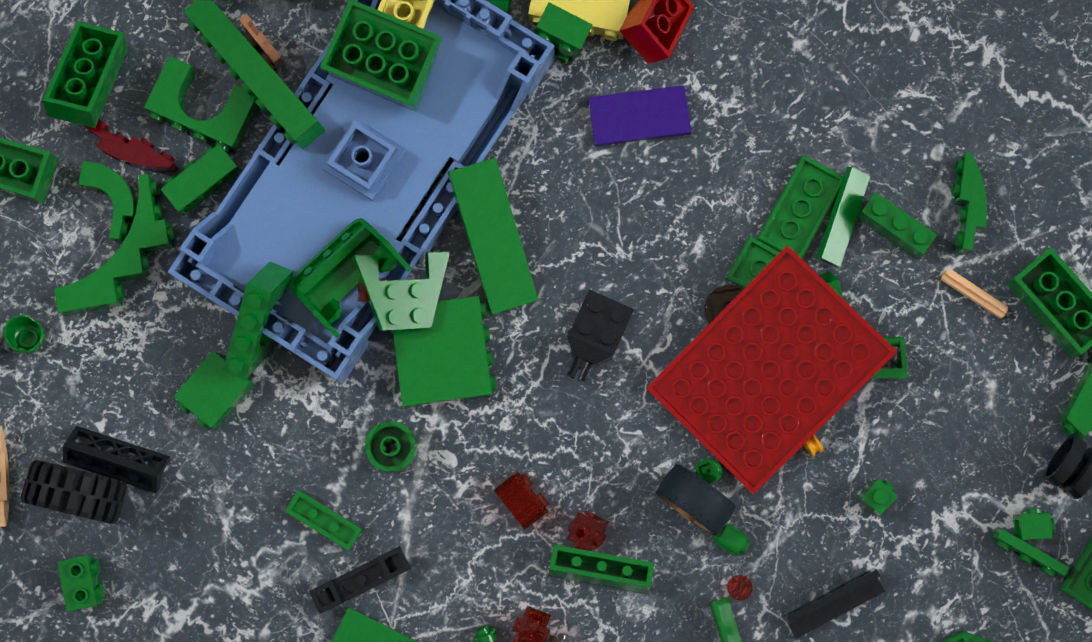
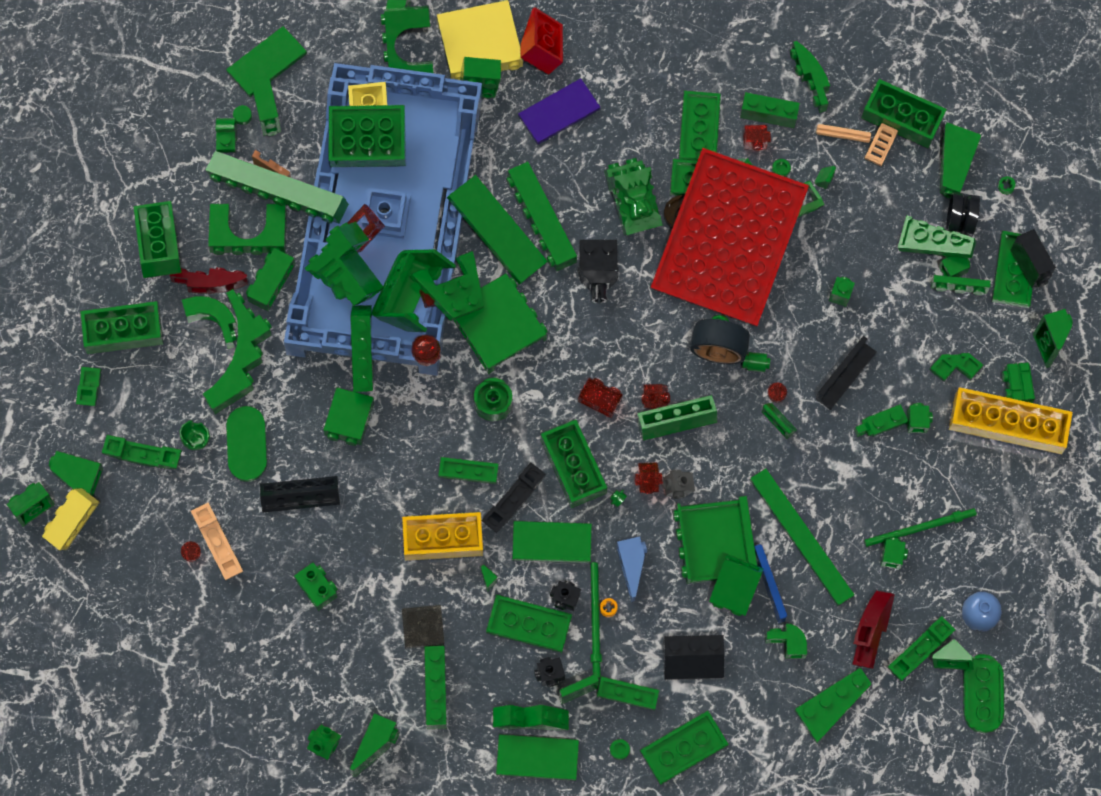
camera: 30 degrees left, 10 degrees down
(73, 491) = (287, 517): black tyre -> none
(82, 369) = (246, 443): none -> green tile
(253, 591) = (442, 536): none -> yellow brick
(278, 211) = (343, 267): none -> green brick
(329, 358) = (426, 350): none -> clear red hair
(336, 175) = (374, 226): none -> clear red tile
(449, 571) = (573, 463): none -> green brick
(556, 241) = (542, 217): none -> green brick
(677, 264) = (633, 196): none -> green brick
(813, 445) = (782, 277): light orange bush -> none
(843, 216) = (731, 119): tile -> none
(863, 253) = (756, 137): none -> clear red brick
(876, 304) = (781, 167): none -> green tile
(925, 339) = (825, 176): none -> green slope
(1017, 479) = (928, 239): none -> wing
(1029, 313) = (887, 134): none -> light nougat slope

